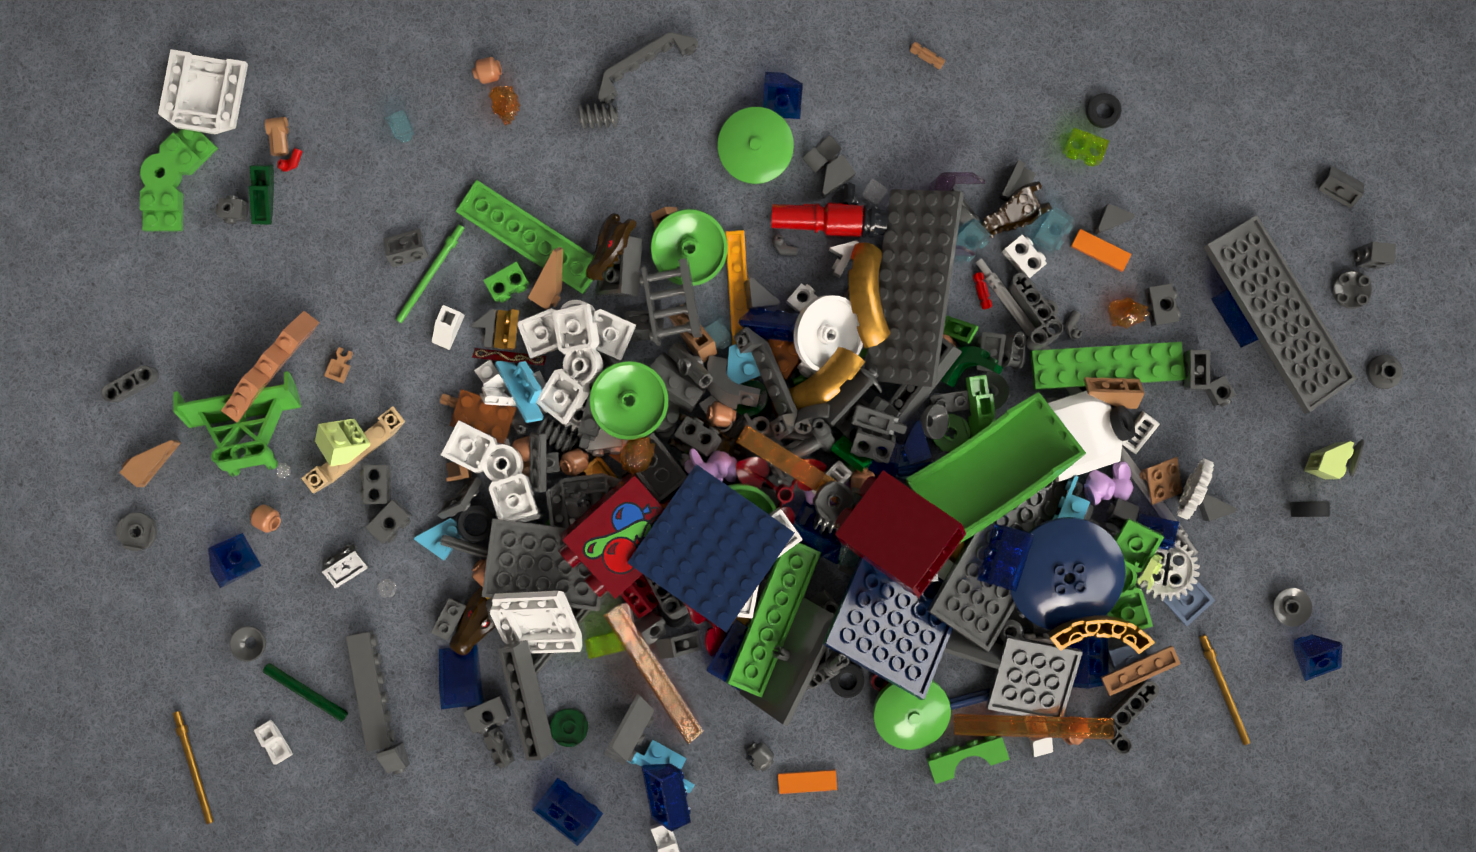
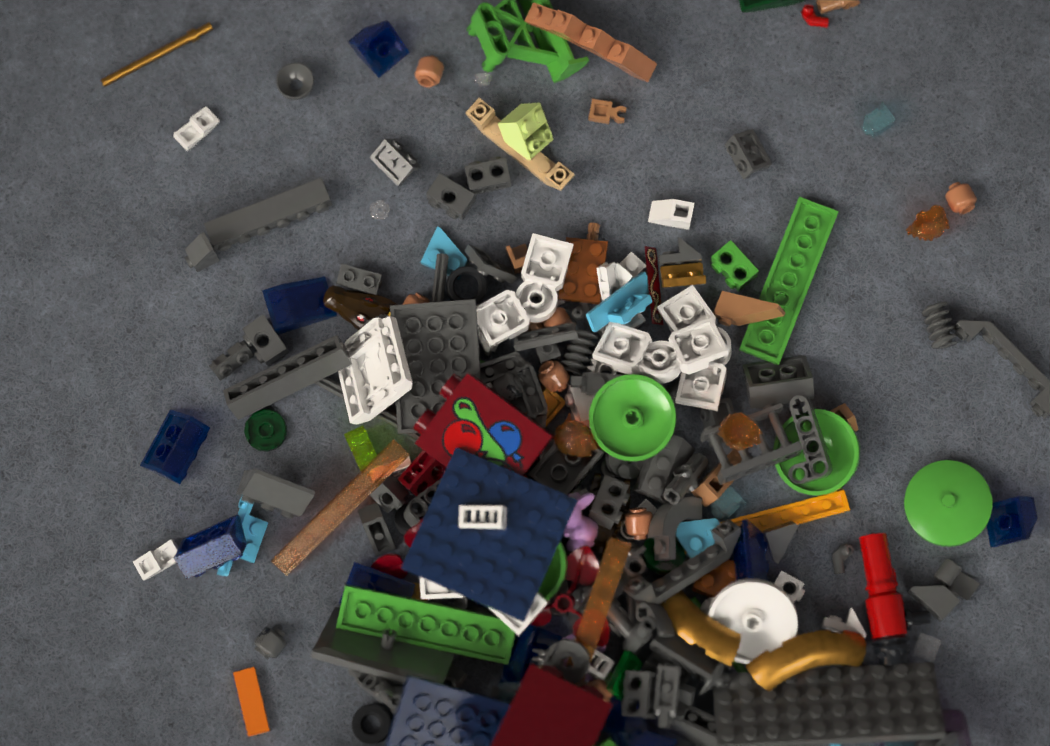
camera: 80 degrees right, 10 degrees down
(305, 692) = (254, 150): dark green axle -> none
(451, 242) = (764, 199): bright green bar -> none
(611, 241) = (799, 365): dark brown animal -> none
(661, 309) = (739, 431): none -> clear orange hair
(676, 253) = (806, 438): none -> dark grey beam
(699, 534) = (502, 516): none -> white slope

